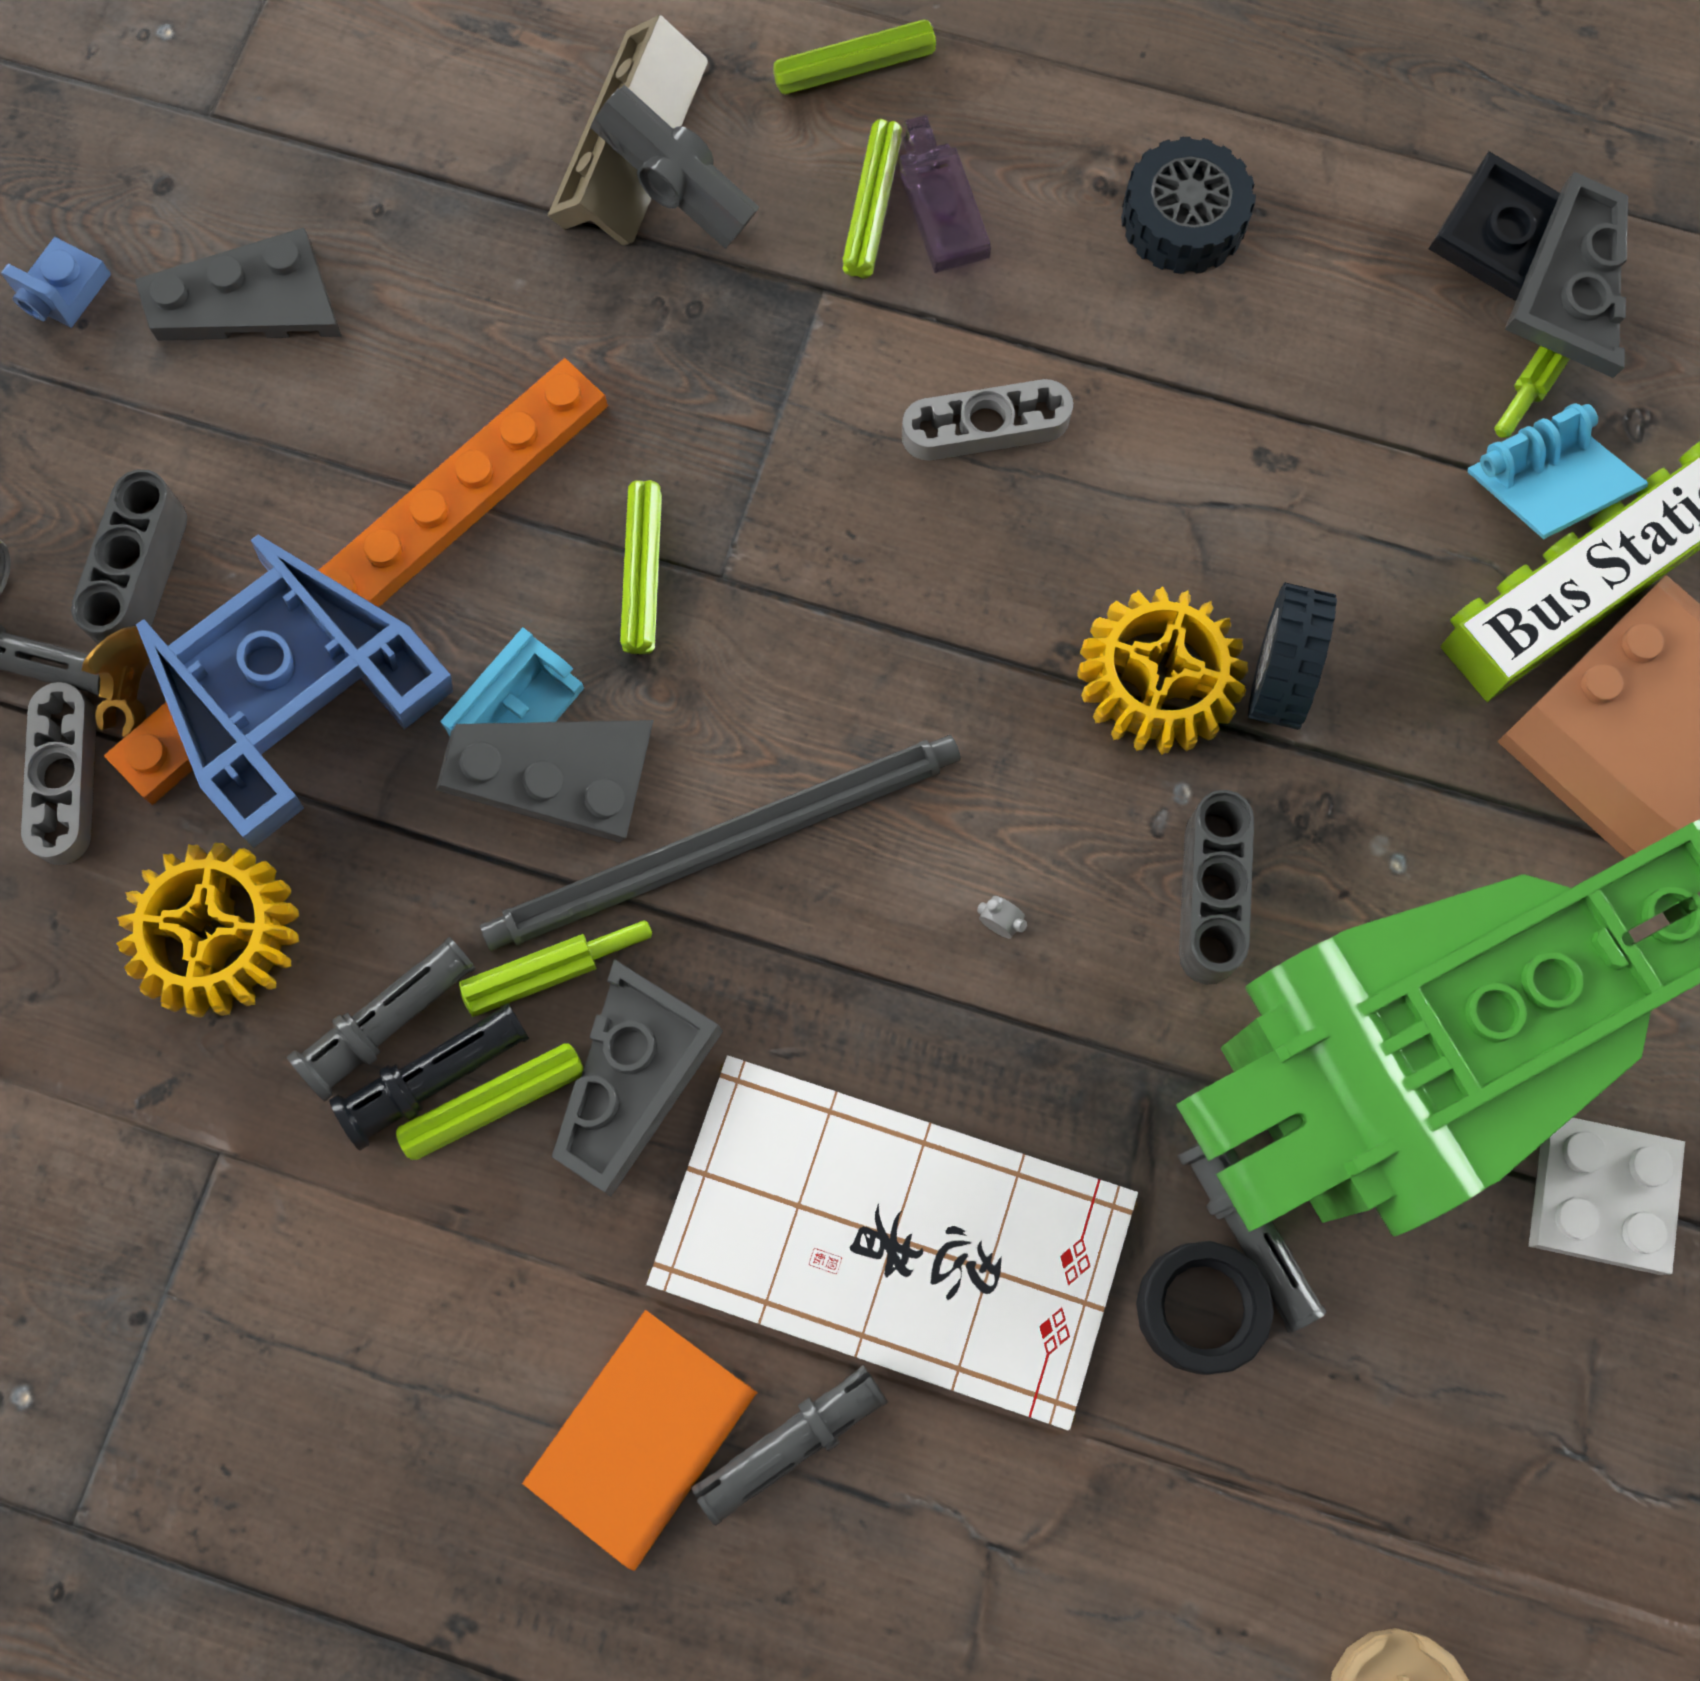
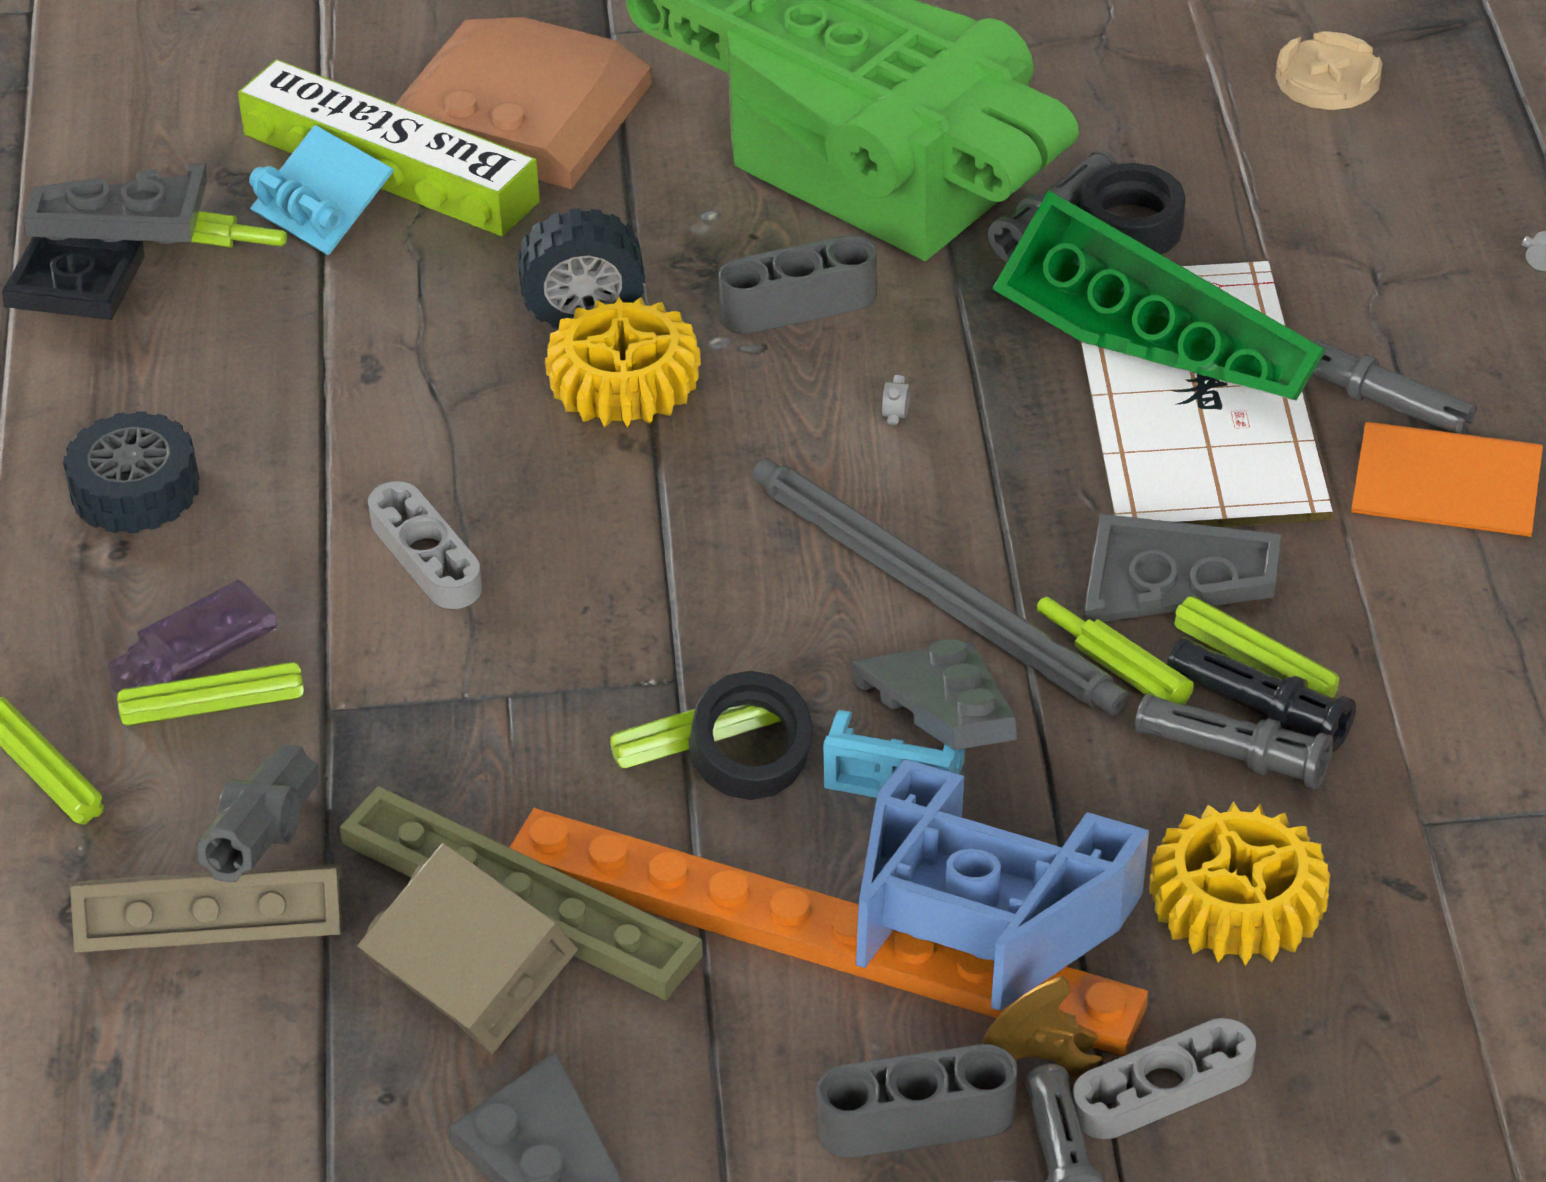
camera: 110 degrees left, 30 degrees down
(449, 268) = (468, 946): none -> dark tan panel
(515, 354) = (600, 926): none -> olive plate
(557, 557) = (760, 691): none -> black tyre
(1029, 1230) = (1147, 306): none -> green wedge

